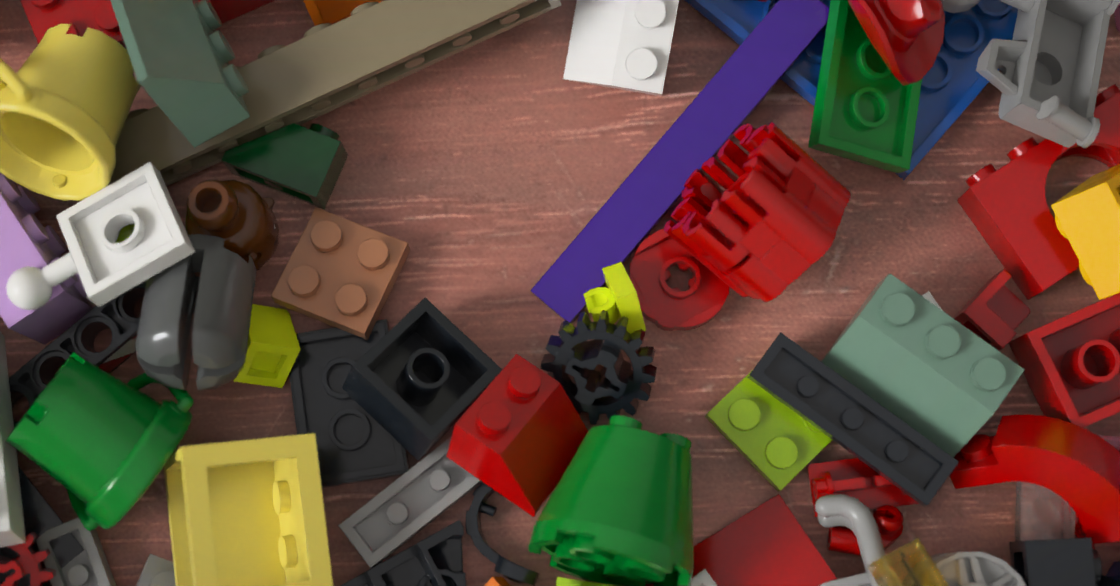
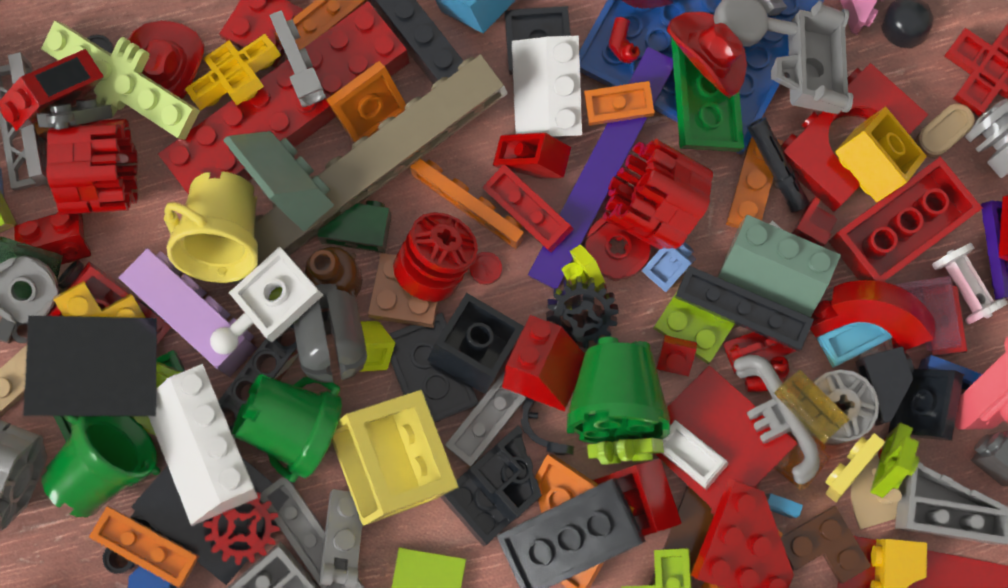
camera: 15 degrees left, 0 degrees up
(390, 231) = (435, 256): none -> red wheel
(470, 266) = (486, 268): none -> red piece
(479, 174) = (478, 209): none -> orange plate
(553, 189) = (527, 208): none -> red plate
(582, 109) = (533, 155): none -> red slope
(730, 57) = (619, 103): none -> orange plate
(730, 468) = (676, 355): none -> red plate
(752, 325) = (669, 265): none -> medium blue bracket
(915, 221) = (751, 188): none -> orange plate
(960, 218) = (784, 176): none -> black pin
(1010, 509) = (851, 341): none -> medium azure tile

